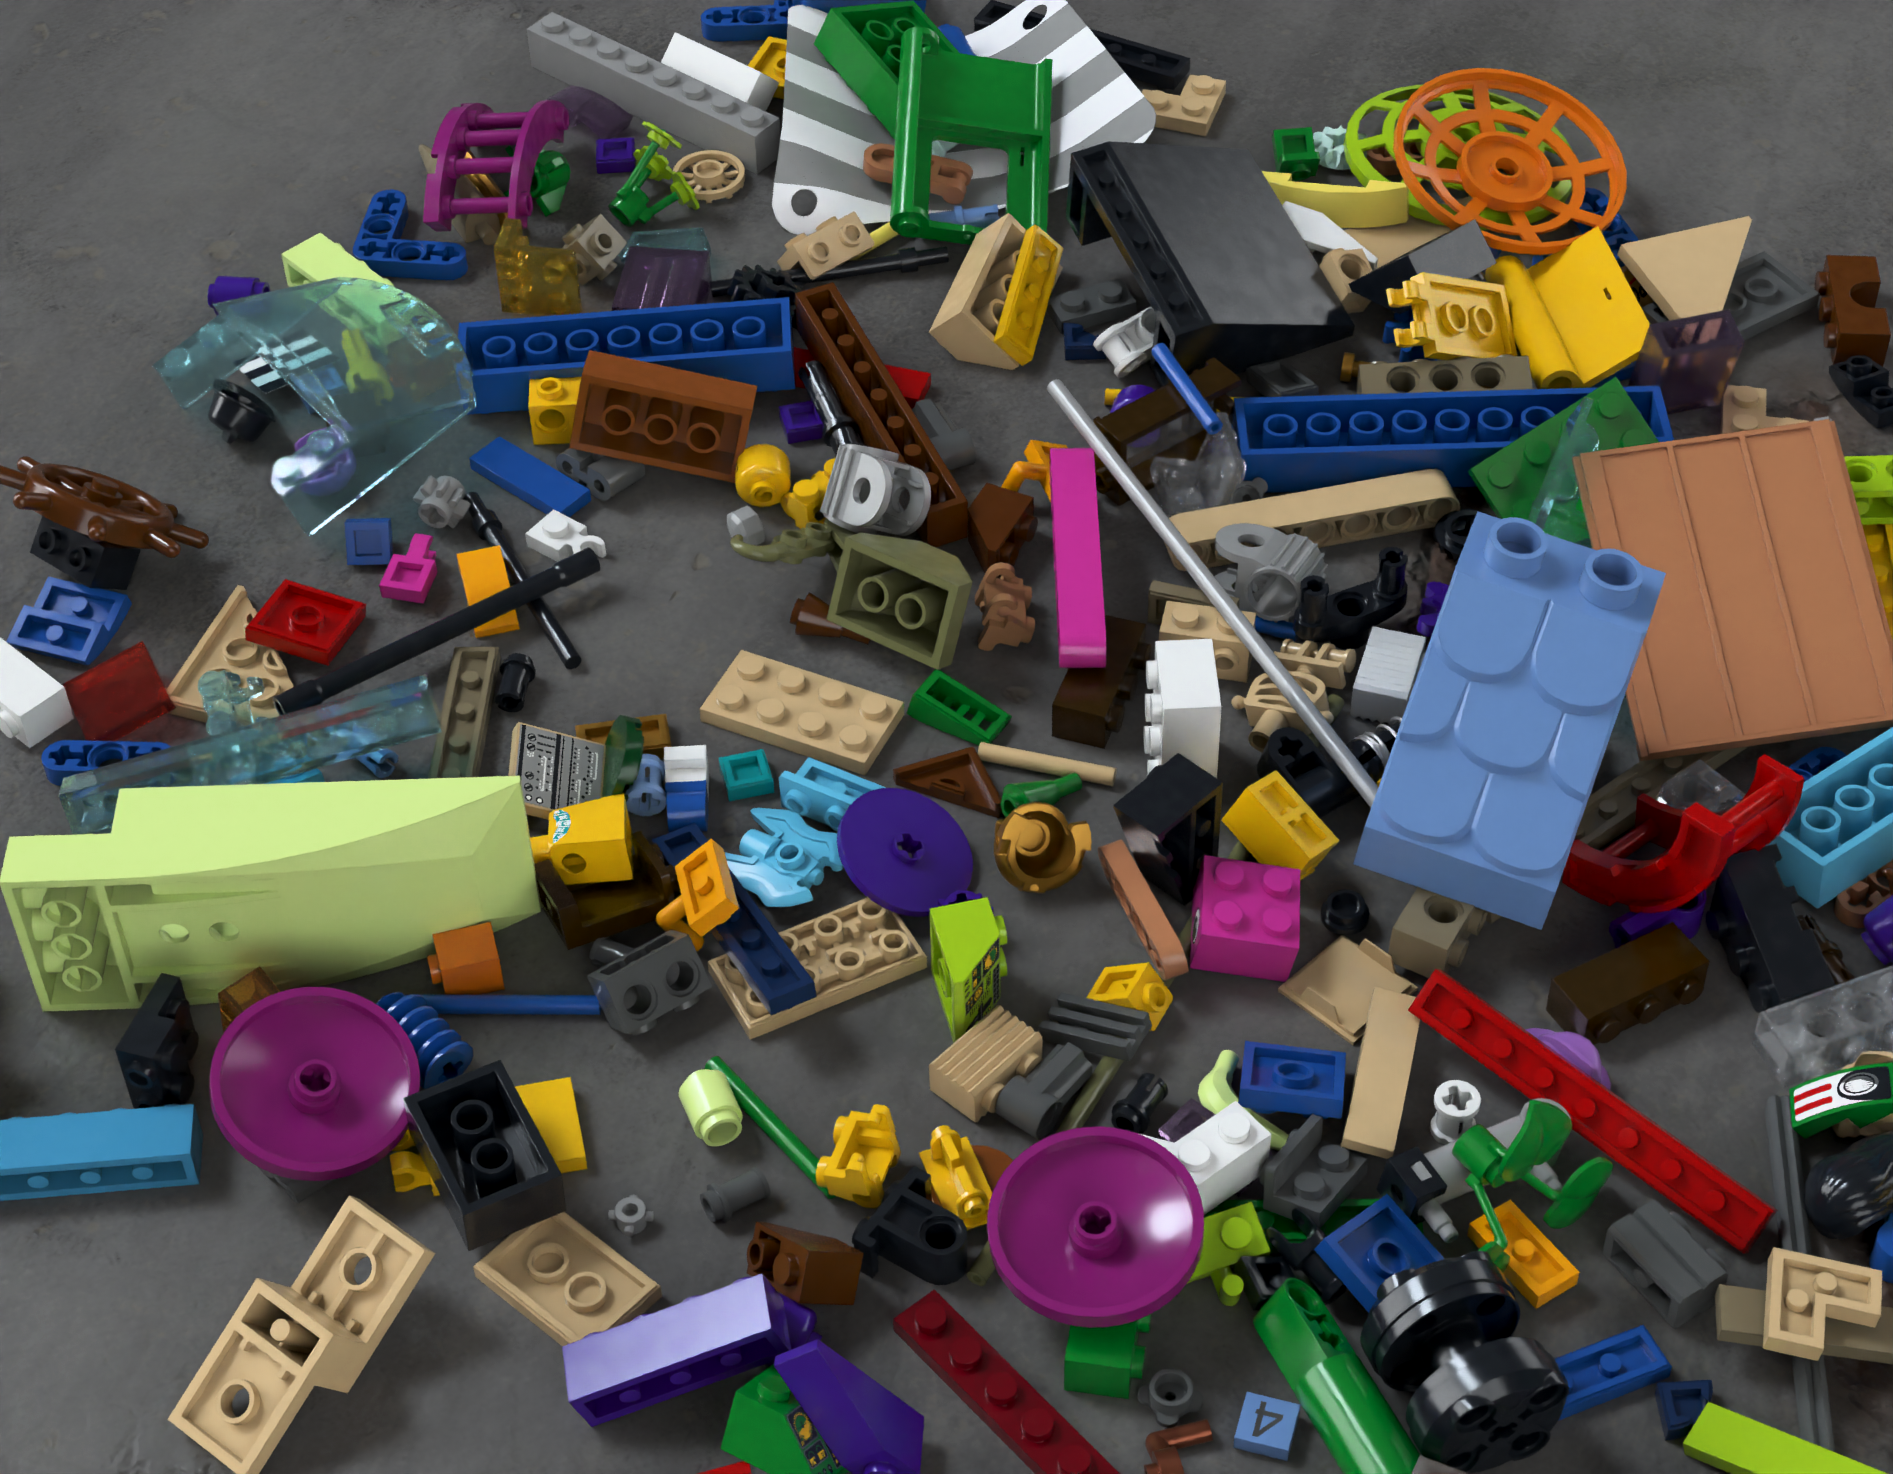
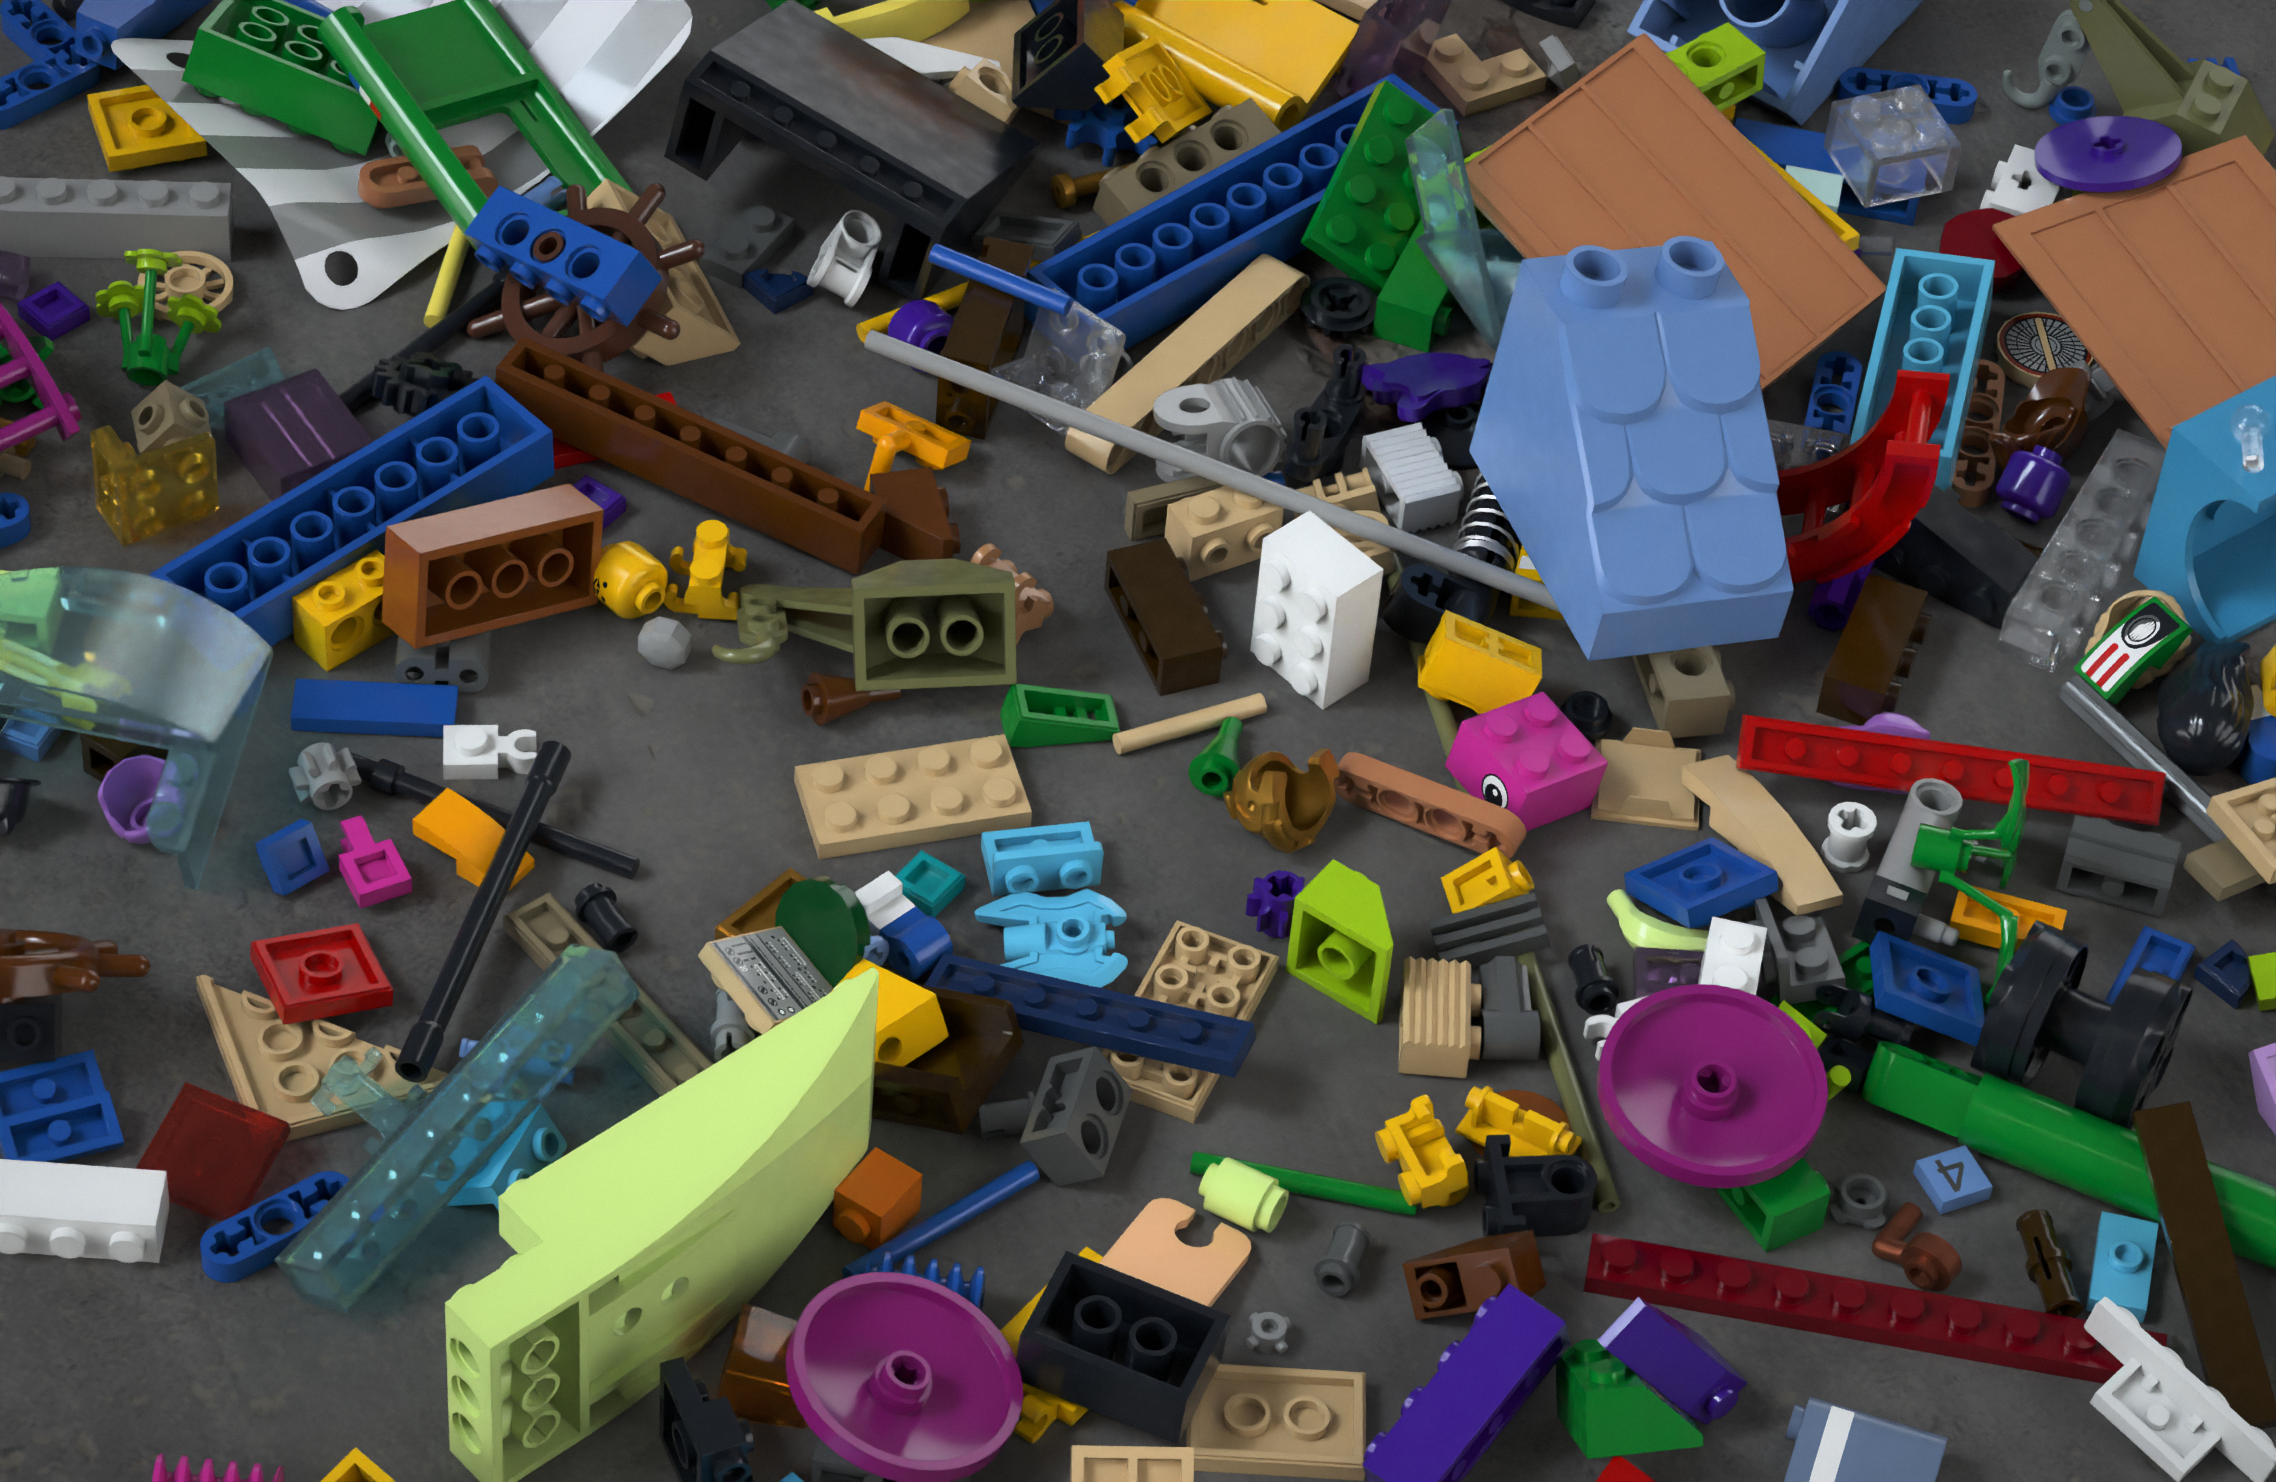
camera: 45 degrees left, 0 degrees up
(599, 1127) = (1158, 1257): none -> light nougat piece
(705, 895) = (1057, 999): light orange plate -> none
(720, 71) = (91, 157): white brick -> none
(828, 247) = (420, 304): tan bracket -> none
(837, 425) = (651, 494): black pin -> none
(867, 491) = (771, 538): light grey piece -> none
(888, 876) = (1170, 870): dark purple piece -> none
(920, 267) = (583, 268): none -> brick
(955, 779) = (1126, 782): reddish brown tile -> none
(1028, 295) = (699, 275): yellow tile -> none
(1077, 559) = (1050, 502): dark pink beam -> none
(1173, 824) = (1414, 703): black wedge -> none

